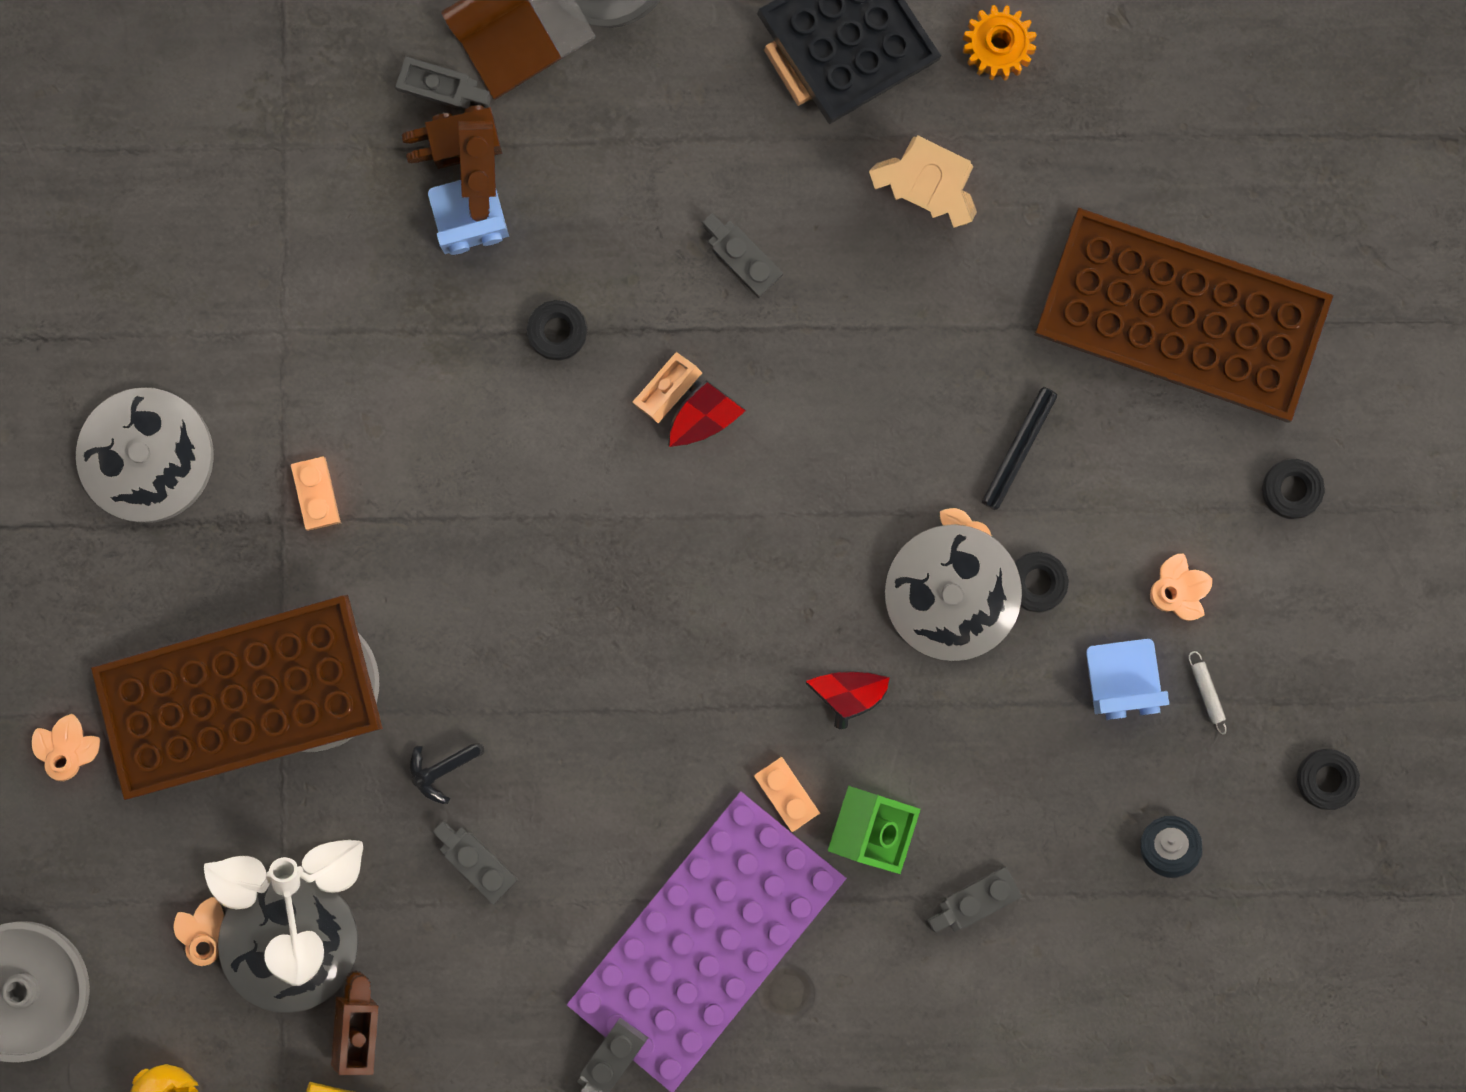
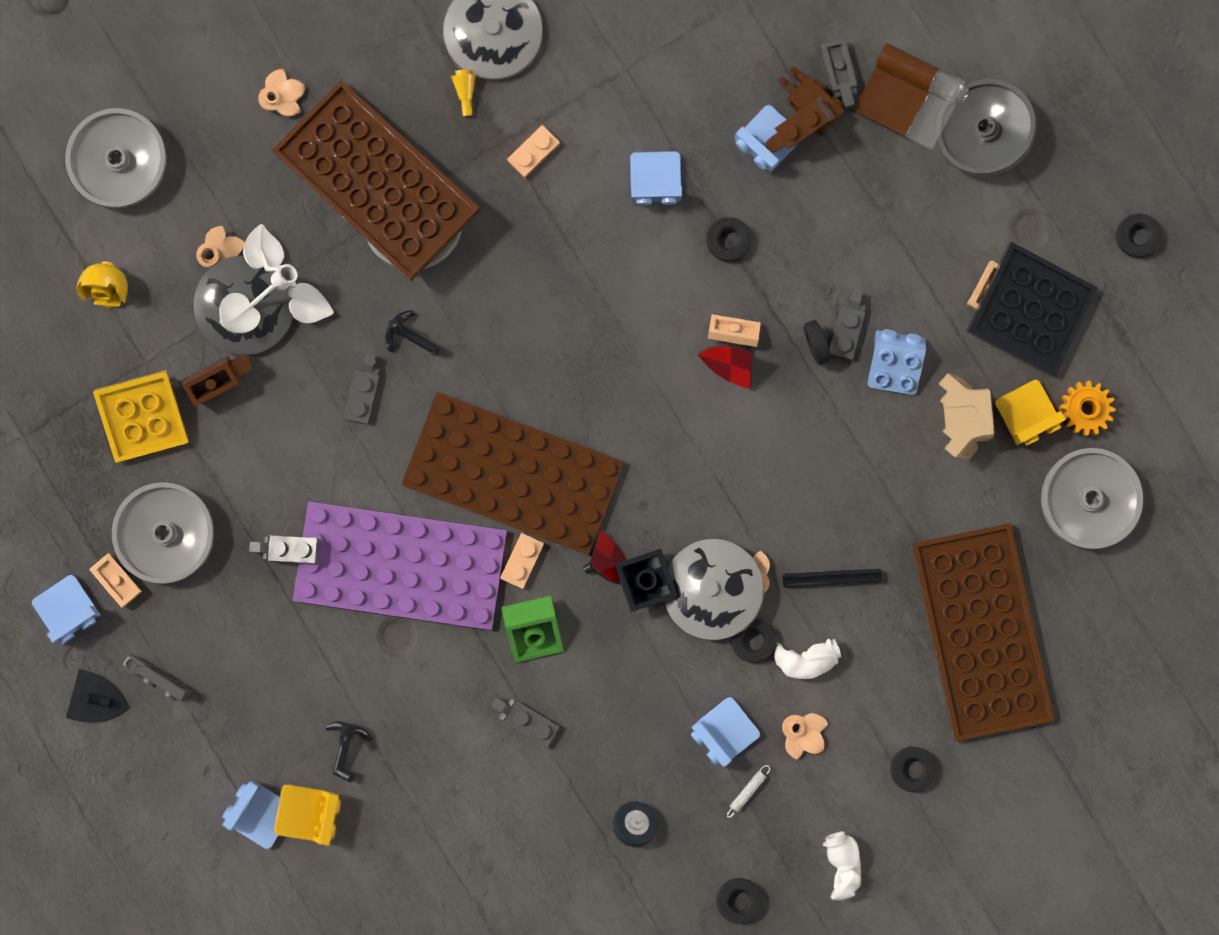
camera: 60 degrees right, 0 degrees up
(188, 527) = (464, 86): none -> yellow cone
(434, 370) = (655, 178): none -> light blue bracket
(677, 744) = (512, 473): none -> reddish brown plate
(739, 300) = (817, 342): none -> black tyre
(816, 223) = (897, 362): none -> light blue bracket
(897, 664) = (645, 580): none -> black slope
(966, 111) = (1028, 413): none -> yellow bracket
(1105, 534) = (810, 664): none -> white animal
(1106, 99) = (1091, 498): none -> light grey dish
(1349, 626) = (844, 855): none -> white animal

